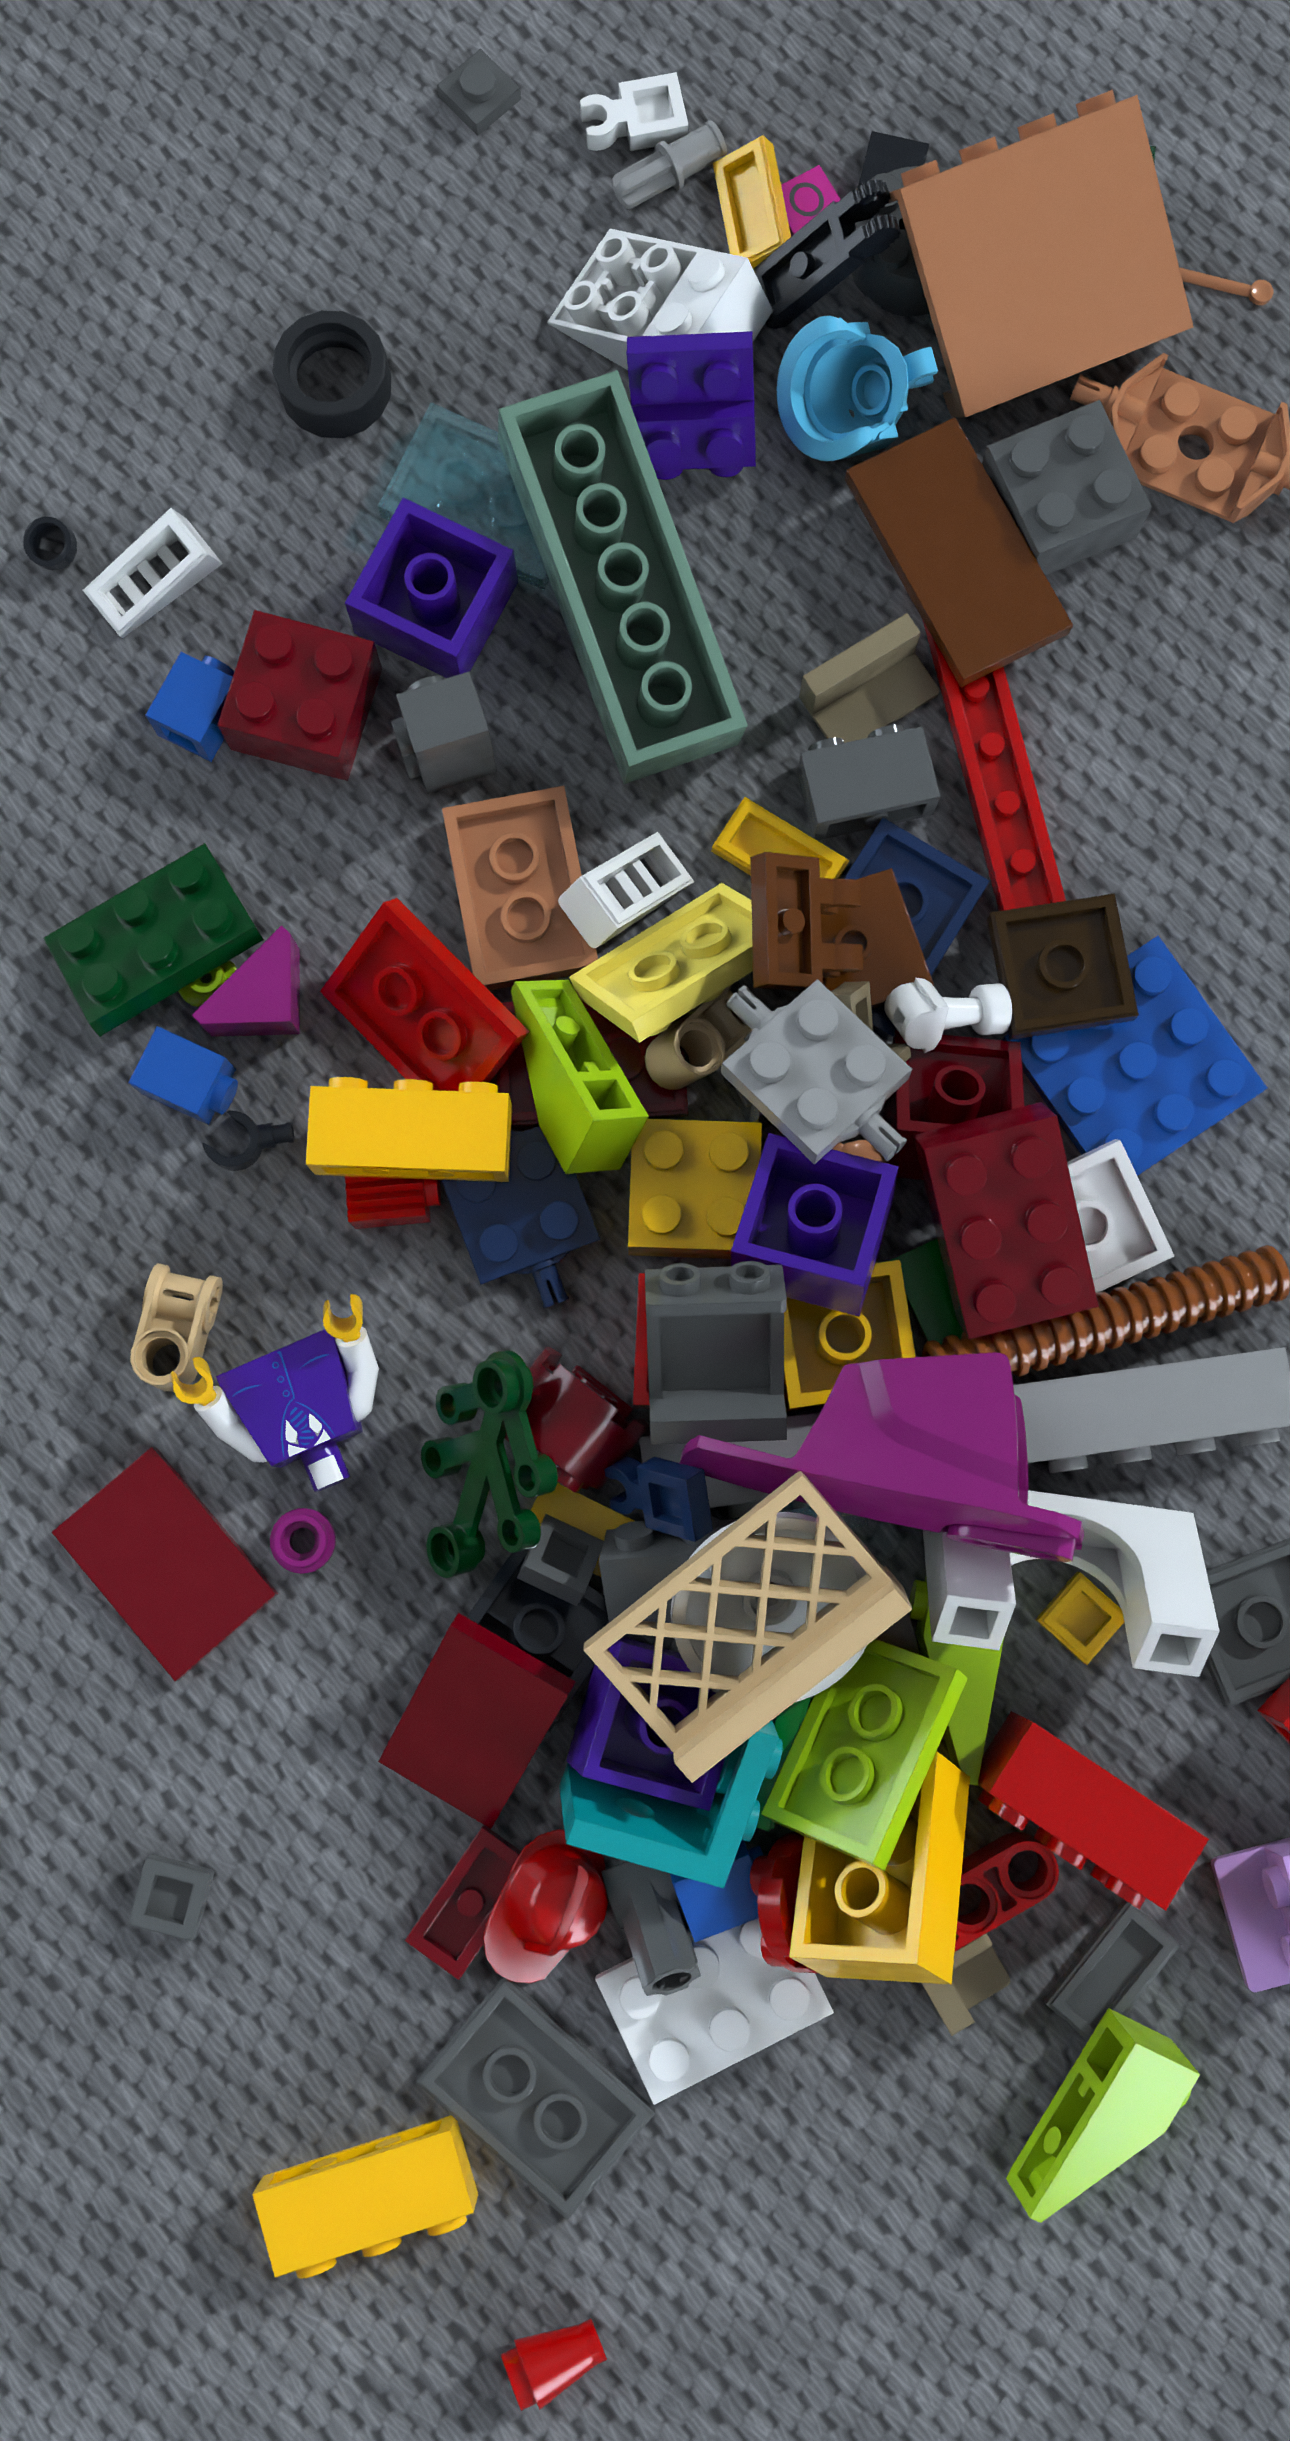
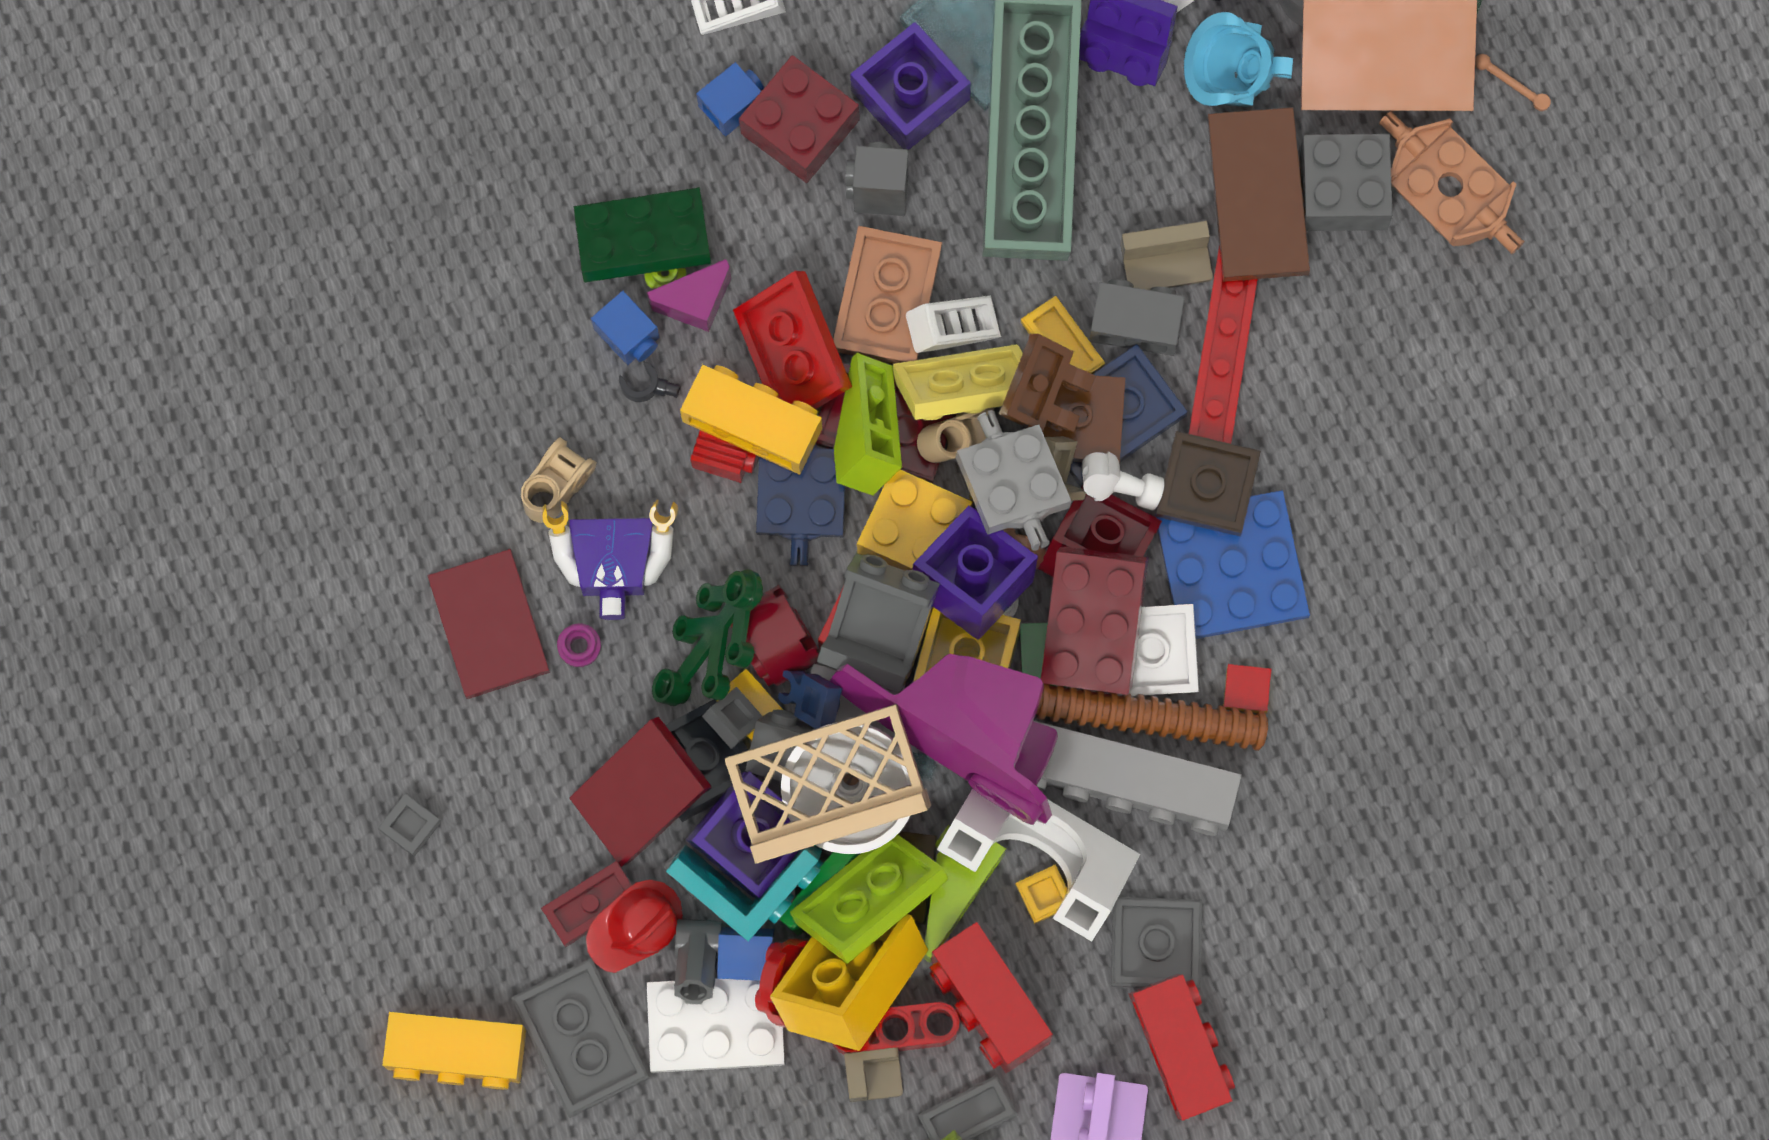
camera: 25 degrees right, 5 degrees down
(1227, 1222) = (1247, 688): none -> red tile

